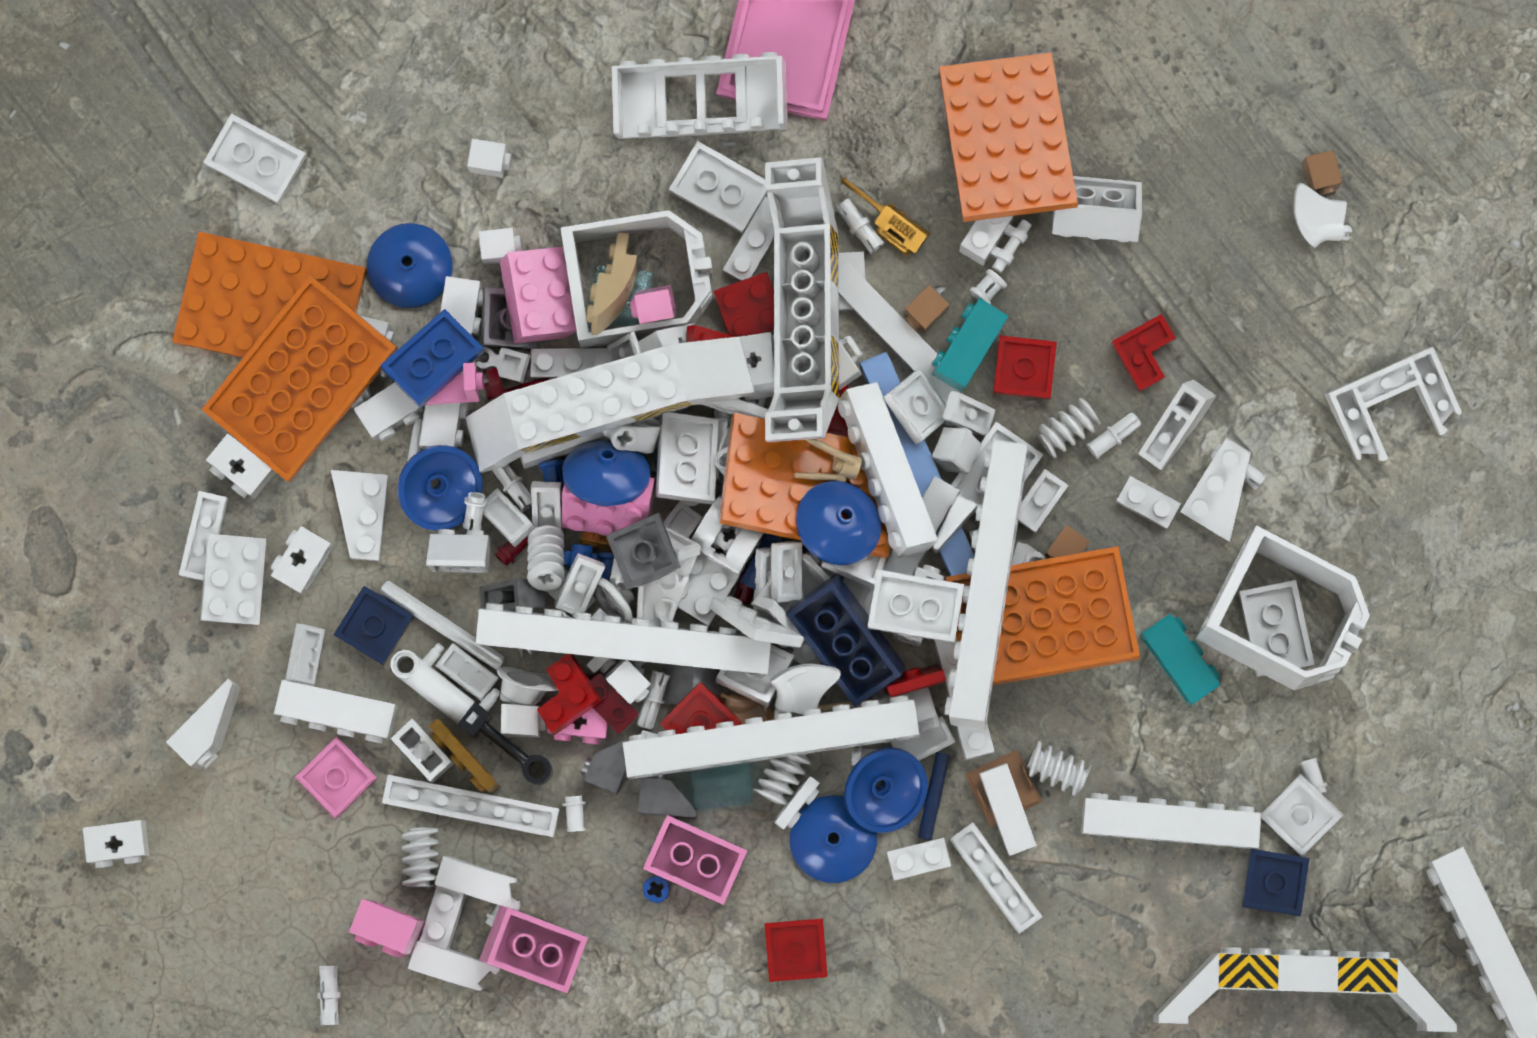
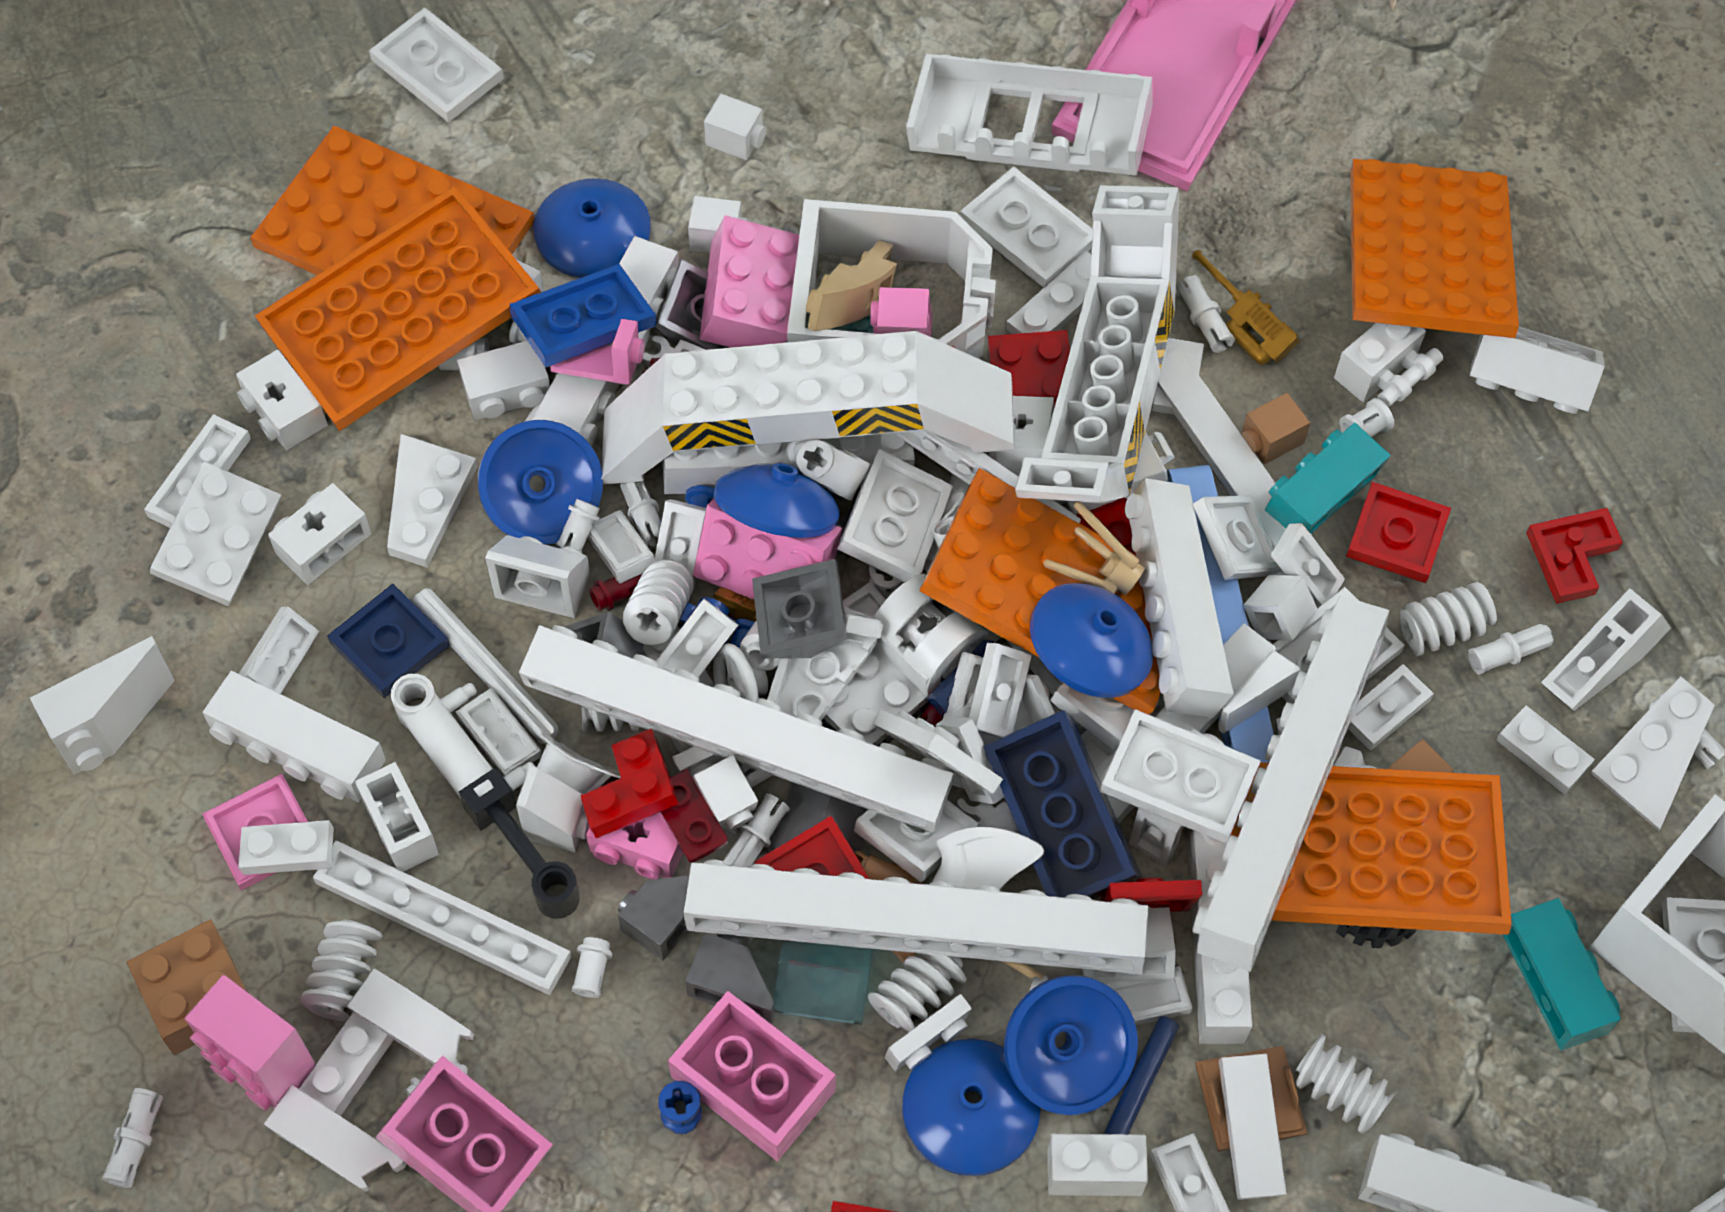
camera: 10 degrees right, 20 degrees down
(331, 893) = (178, 976): none -> medium nougat brick
(358, 788) = (286, 847): none -> white plate
(463, 758) = (452, 838): pearl gold plate -> none

